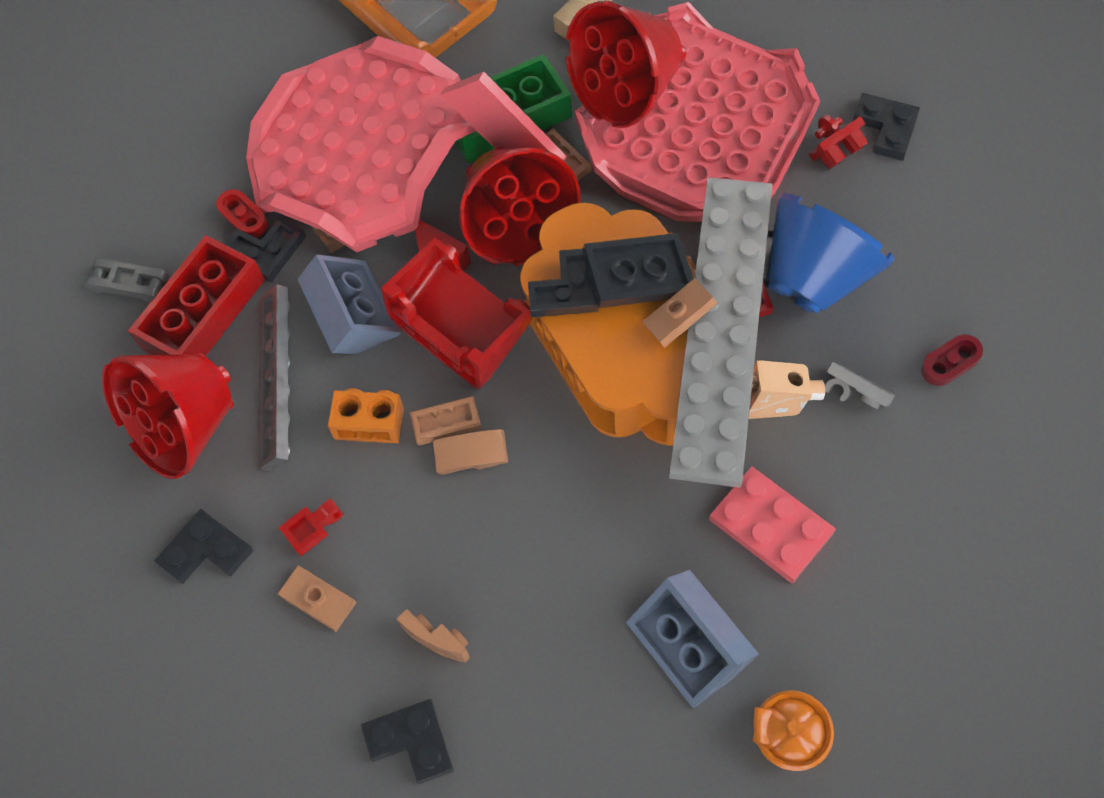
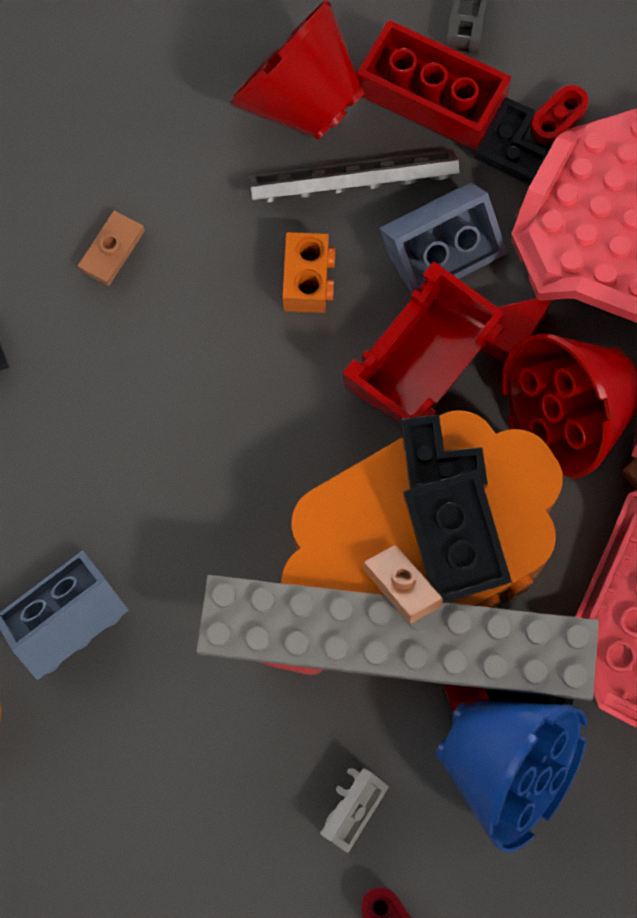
camera: 85 degrees right, 10 degrees up
(203, 539) = (172, 133): black plate -> none
(306, 528) = (182, 229): red plate -> none
(440, 641) = (59, 371): nougat slope -> none
(445, 420) = (304, 354): nougat plate -> none
(470, 450) = (267, 381): nougat slope -> none
(772, 524) = (187, 705): coral plate -> none
(782, 389) = (340, 697): light nougat torso -> none

